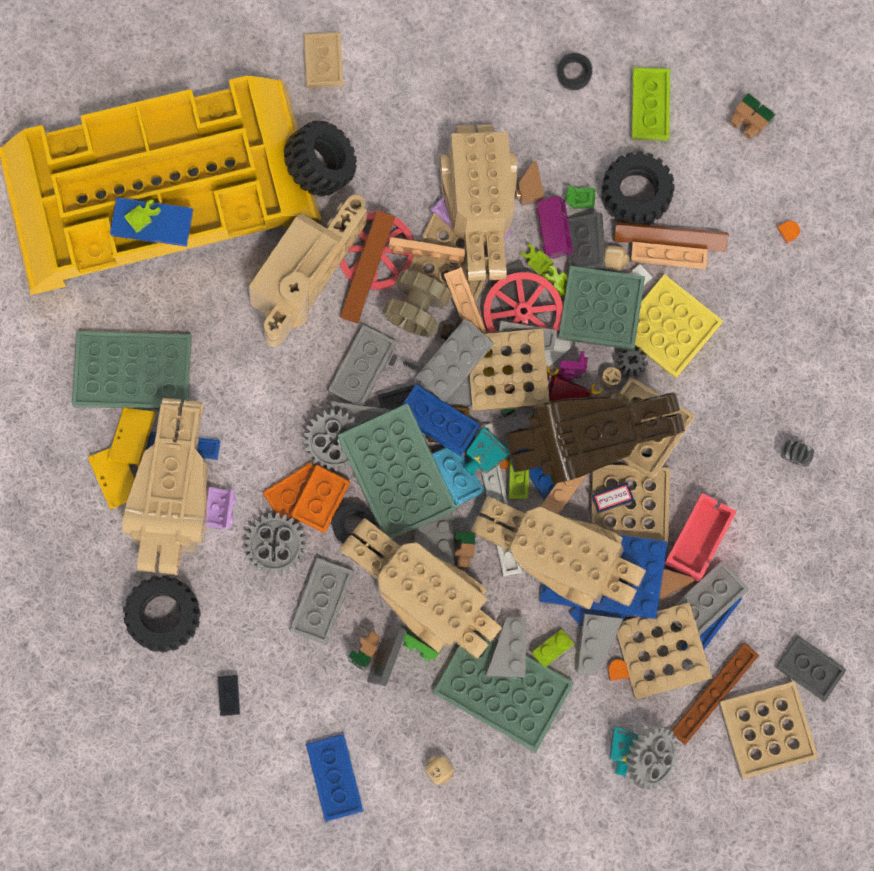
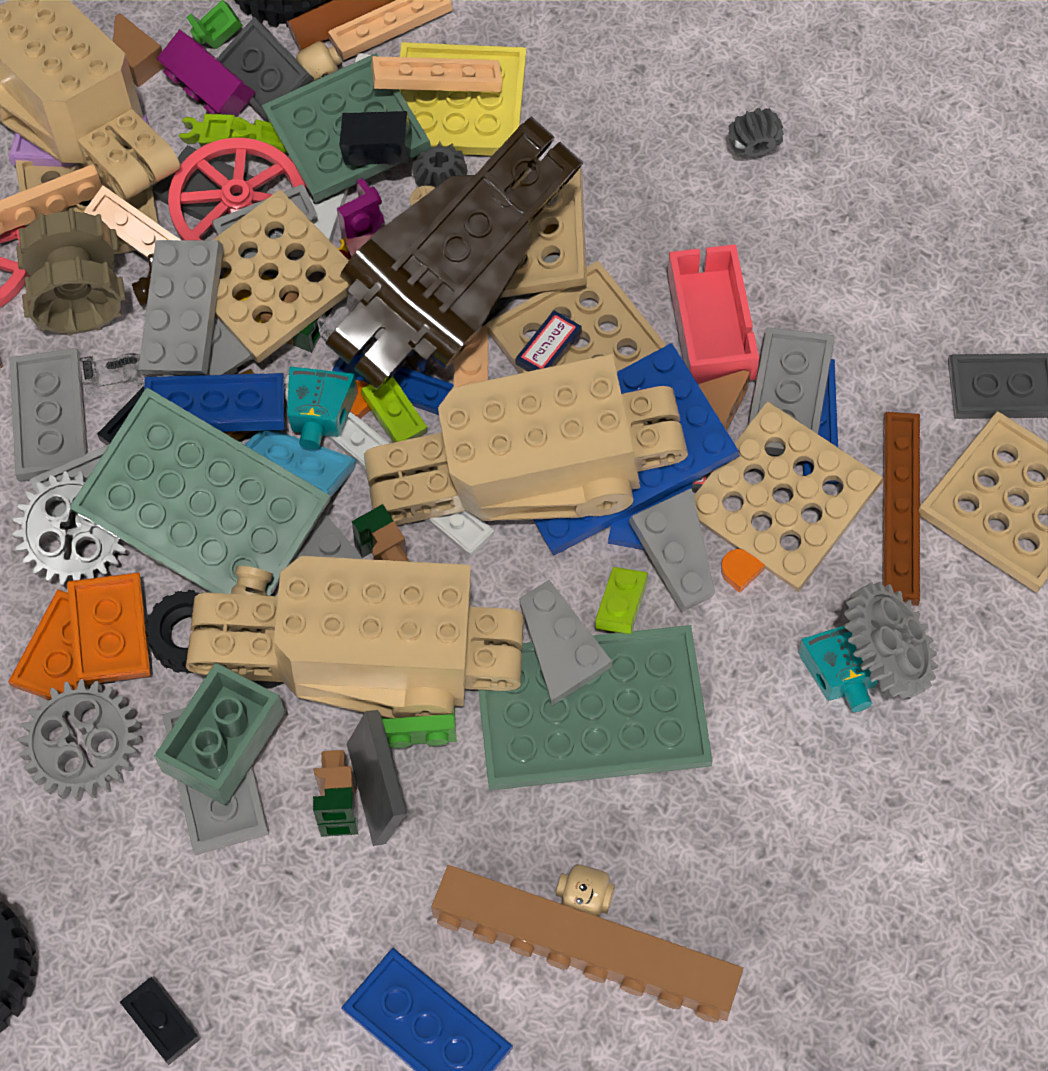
camera: 30 degrees left, 15 degrees down
(334, 589) = (220, 733): none -> sand green brick
(393, 528) = (251, 580): none -> tan wheel
(424, 791) = (587, 943): none -> medium nougat brick
(607, 331) = (375, 138): none -> black brick
(664, 311) = (436, 74): none -> light nougat plate

